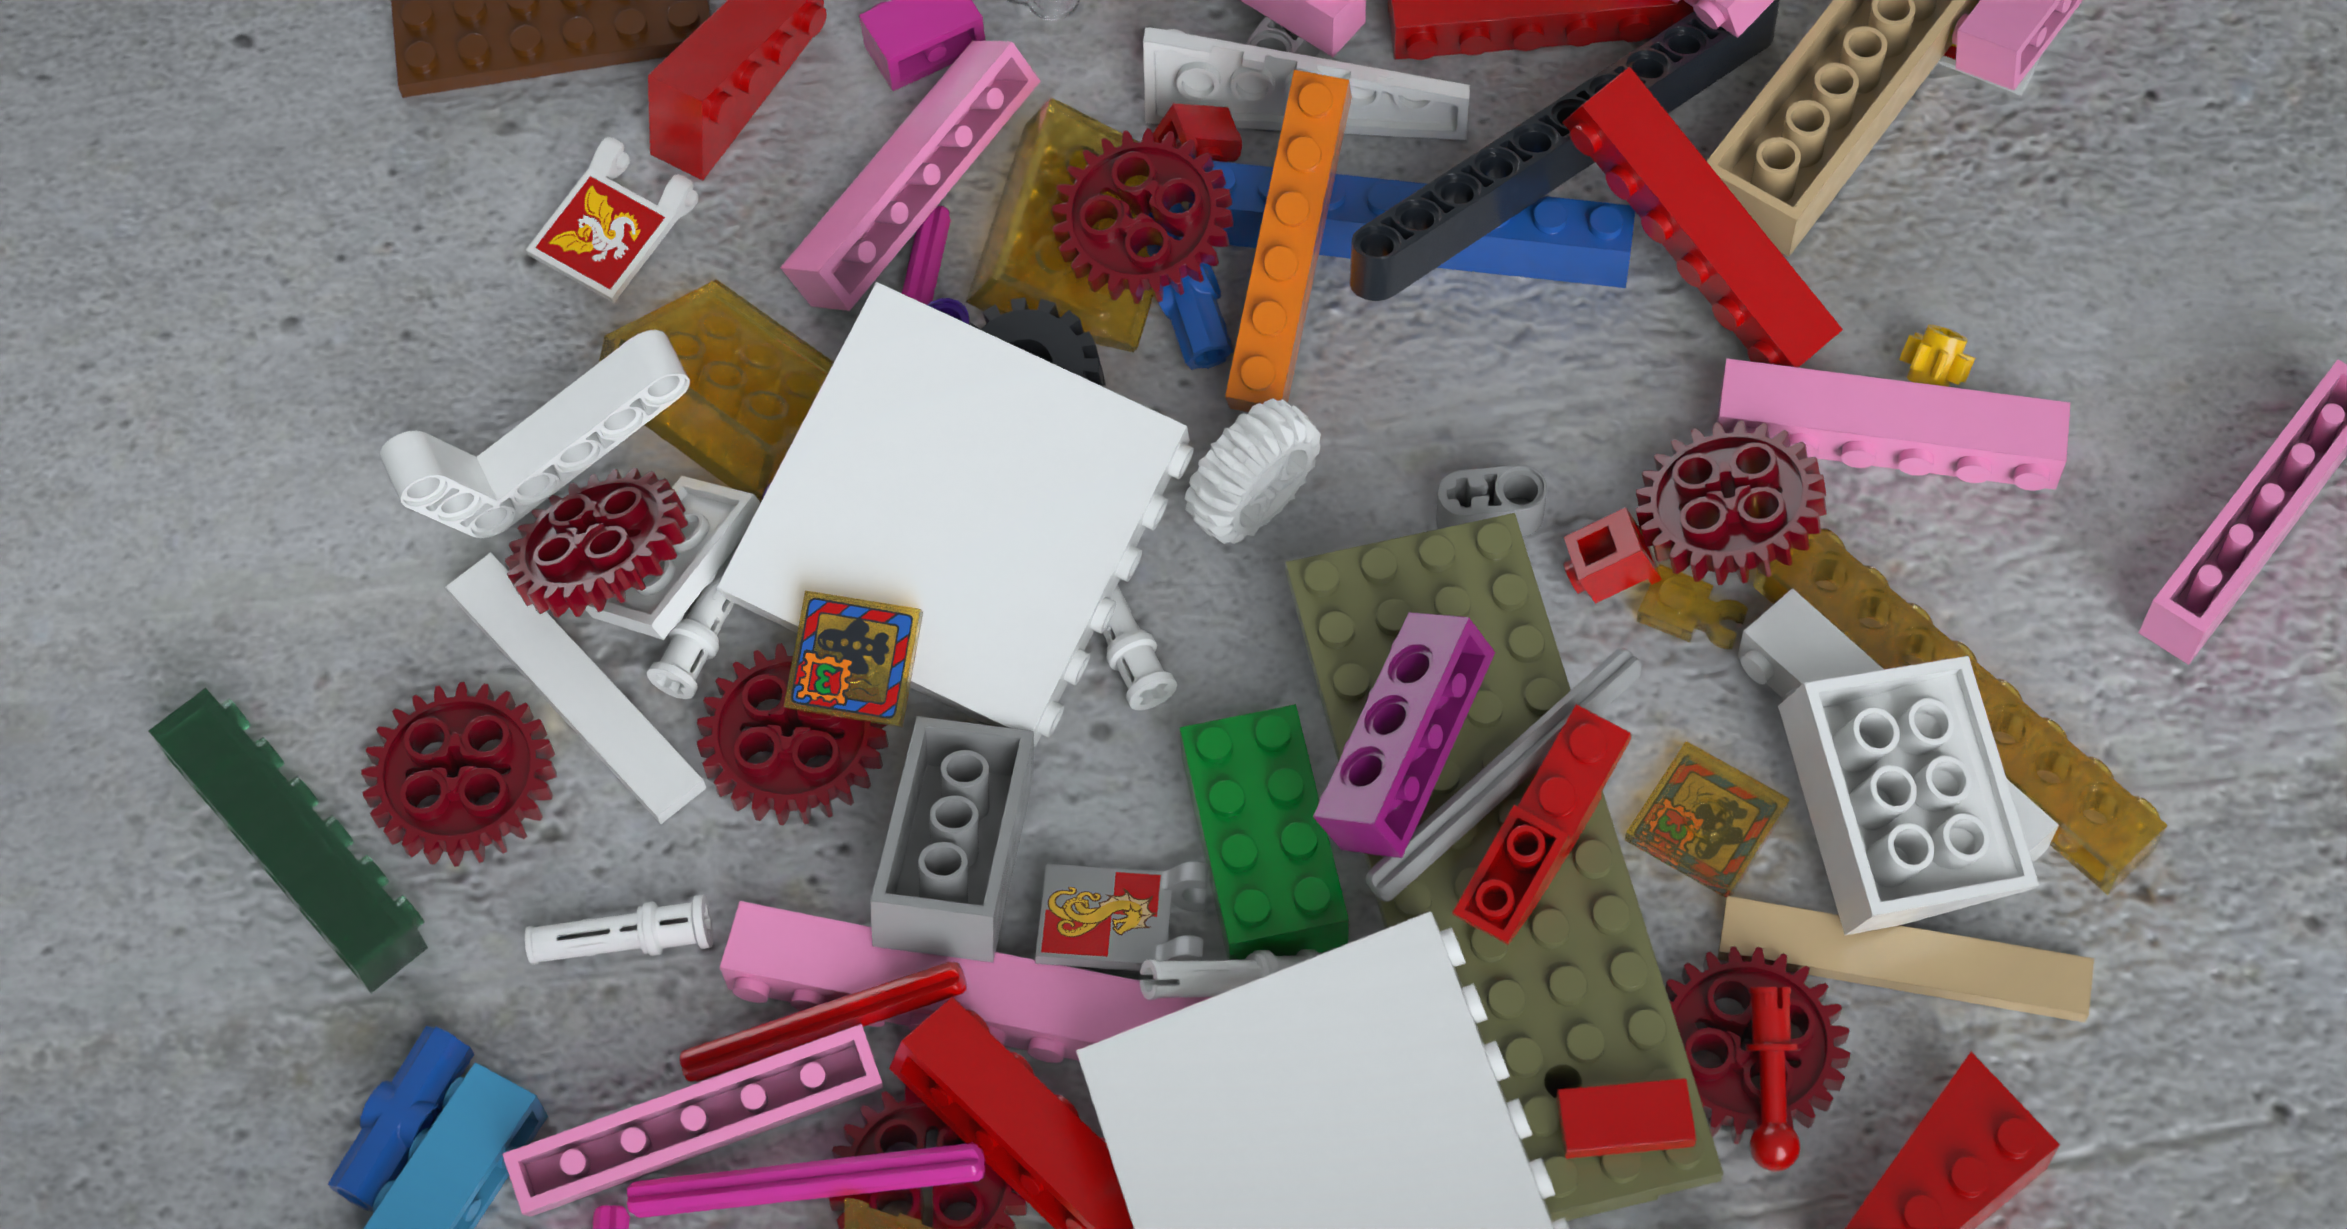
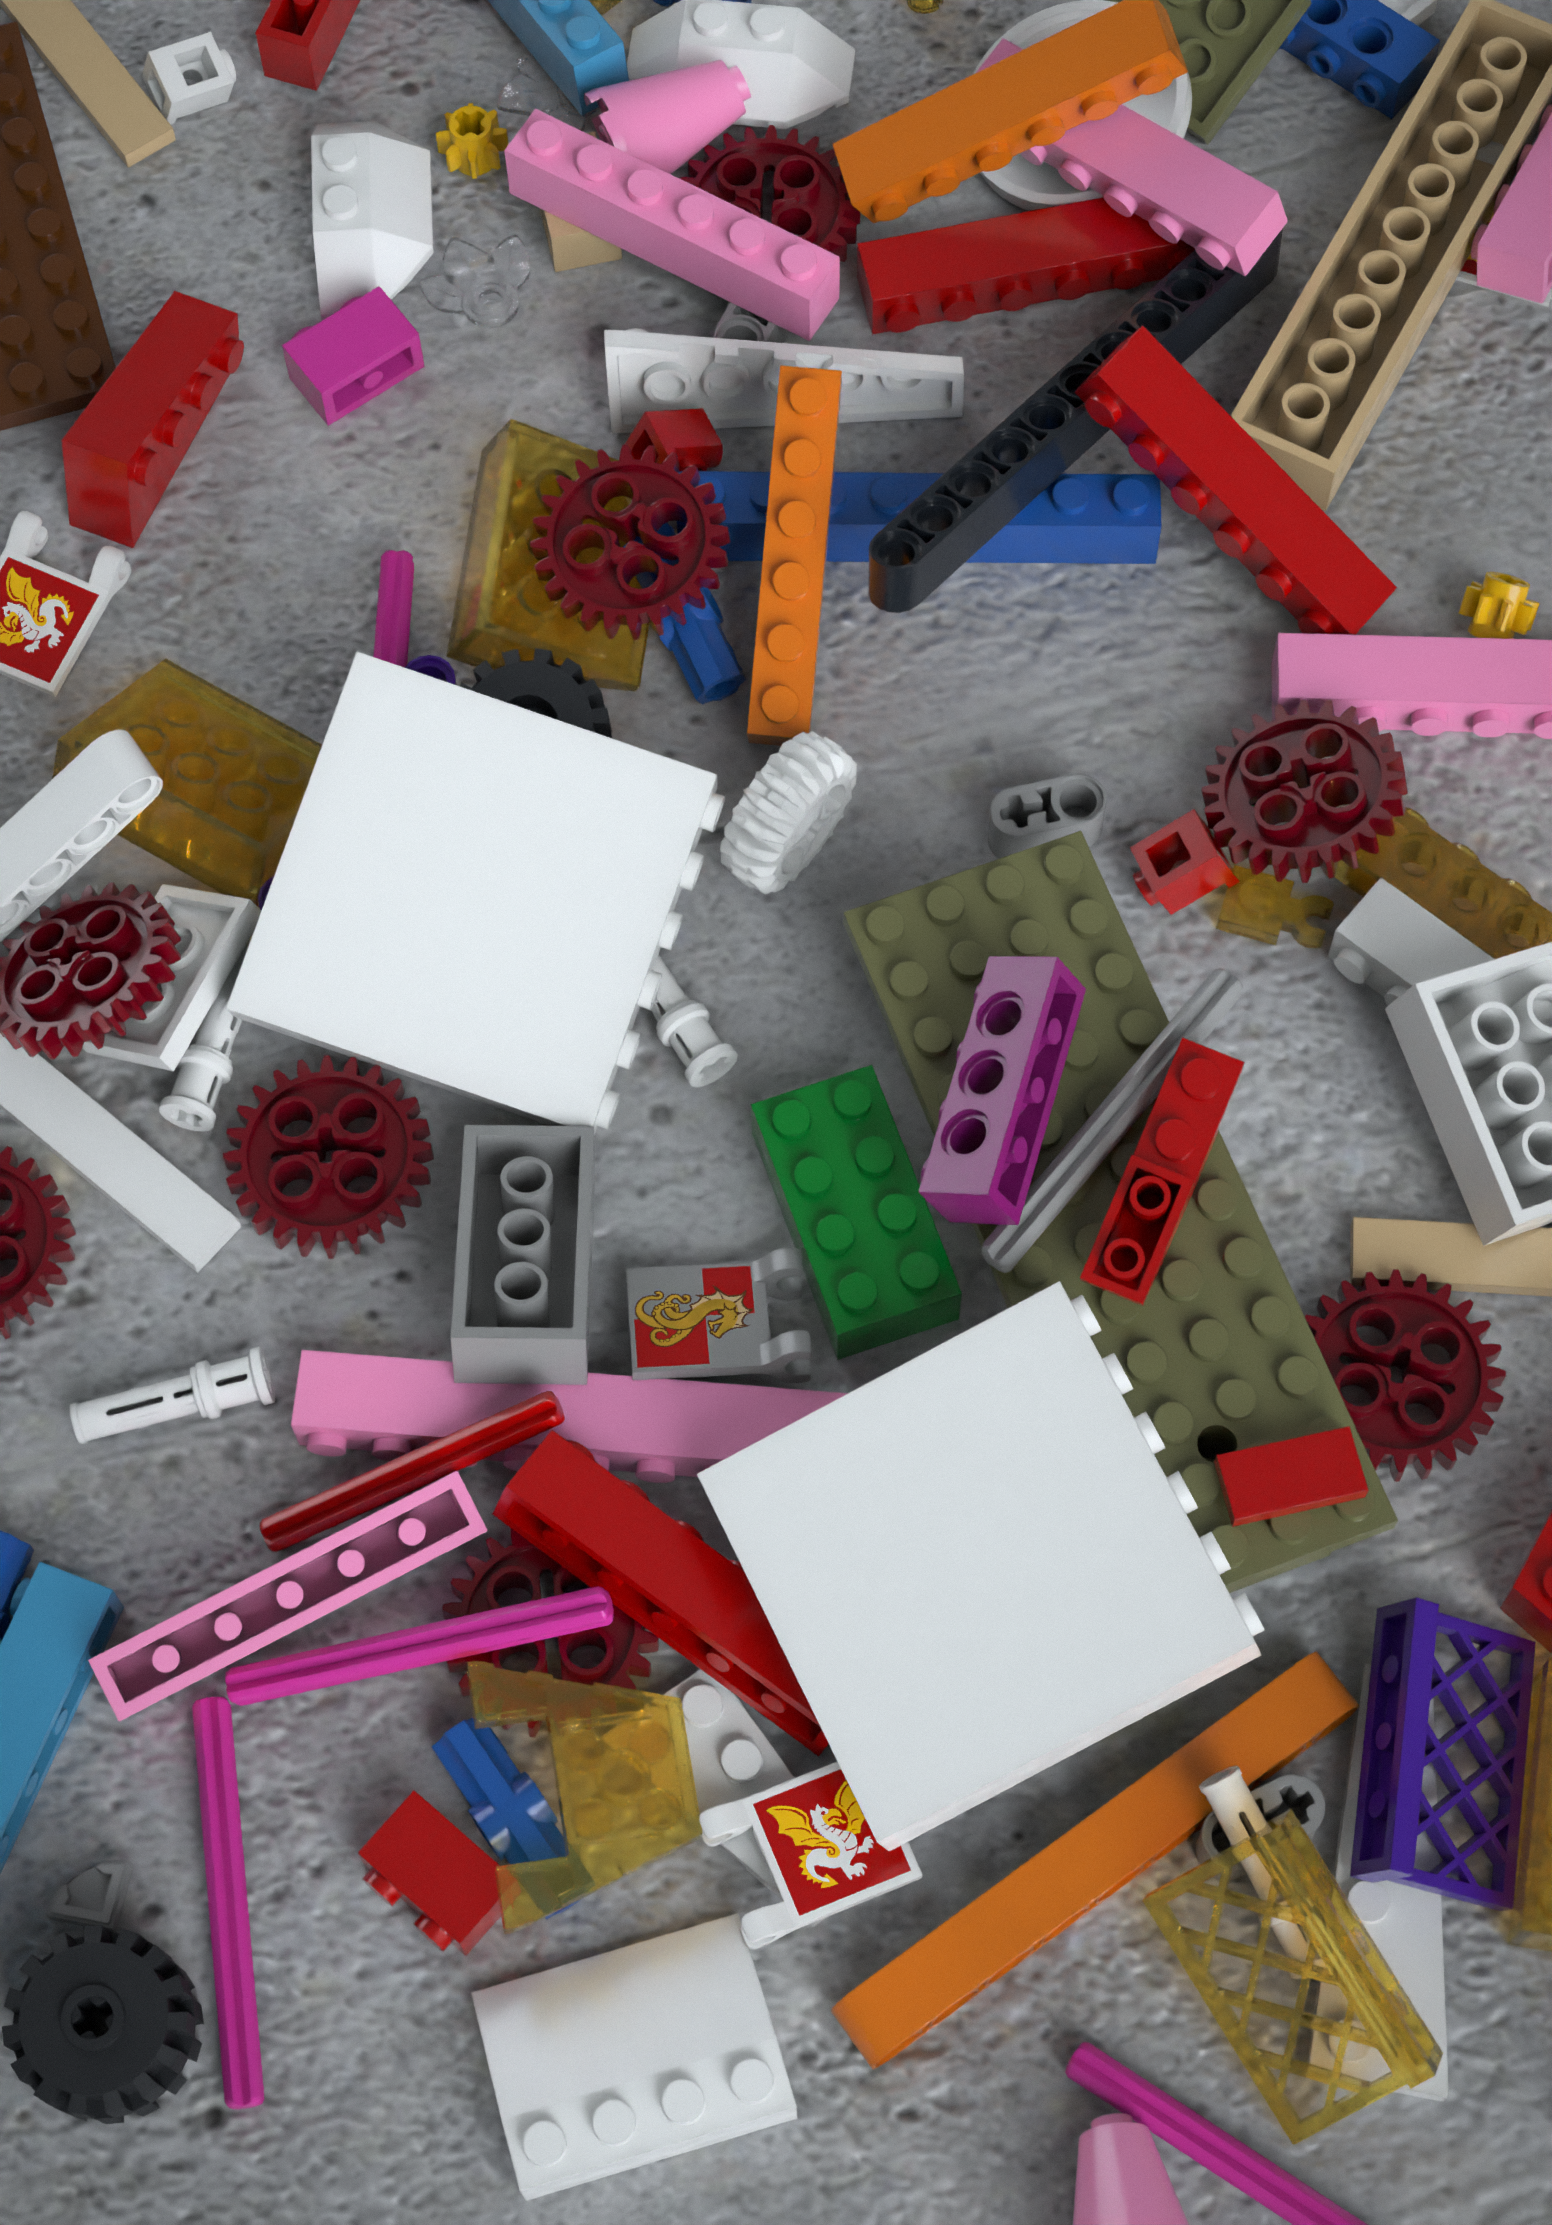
camera: 10 degrees left, 5 degrees up
(853, 658) = (387, 1070): tile -> none
(910, 175) = (365, 520): bright pink brick -> none
(1212, 977) = (837, 1370): white pin -> none
(1707, 819) = (1320, 1136): clear yellow tile -> none
(1774, 1142) = (1439, 1477): red pin -> none

